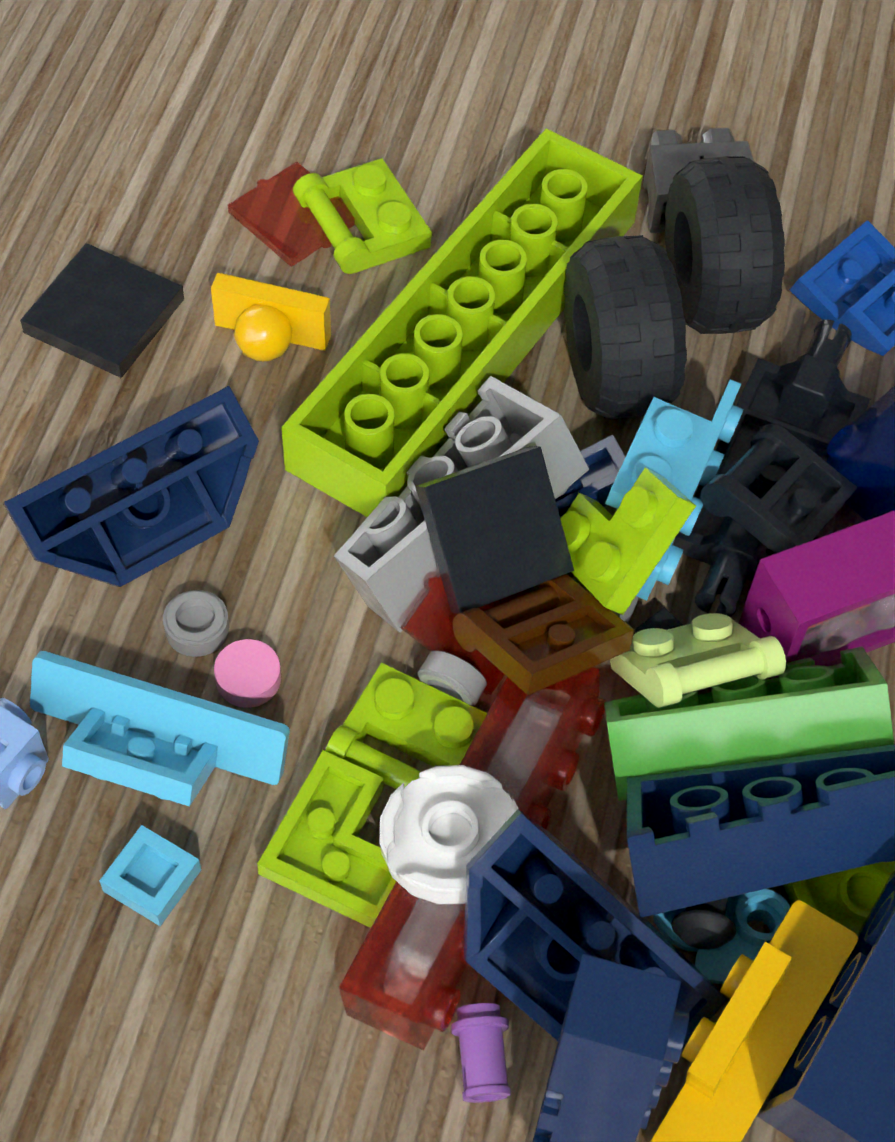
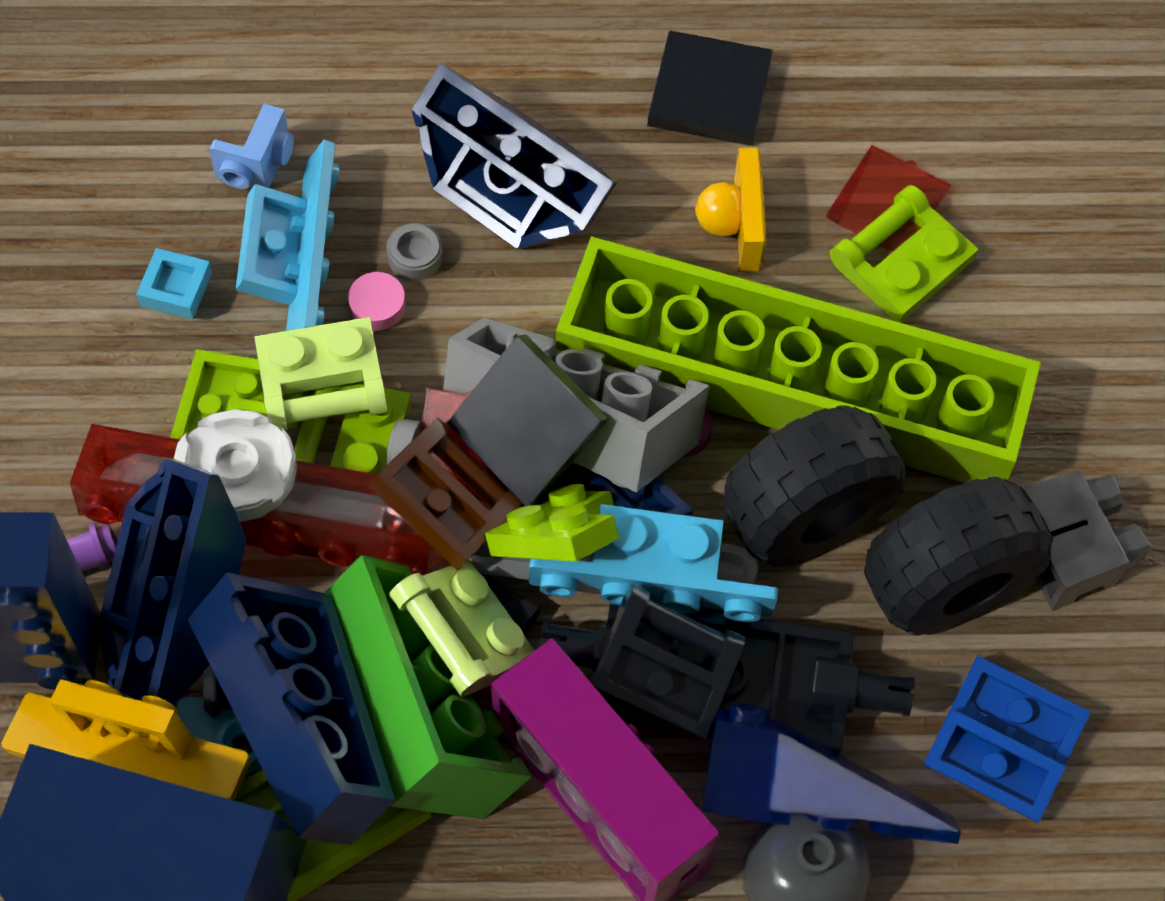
camera: 75 degrees right, 5 degrees up
(322, 733) = (316, 360): none -> yellowish green plate

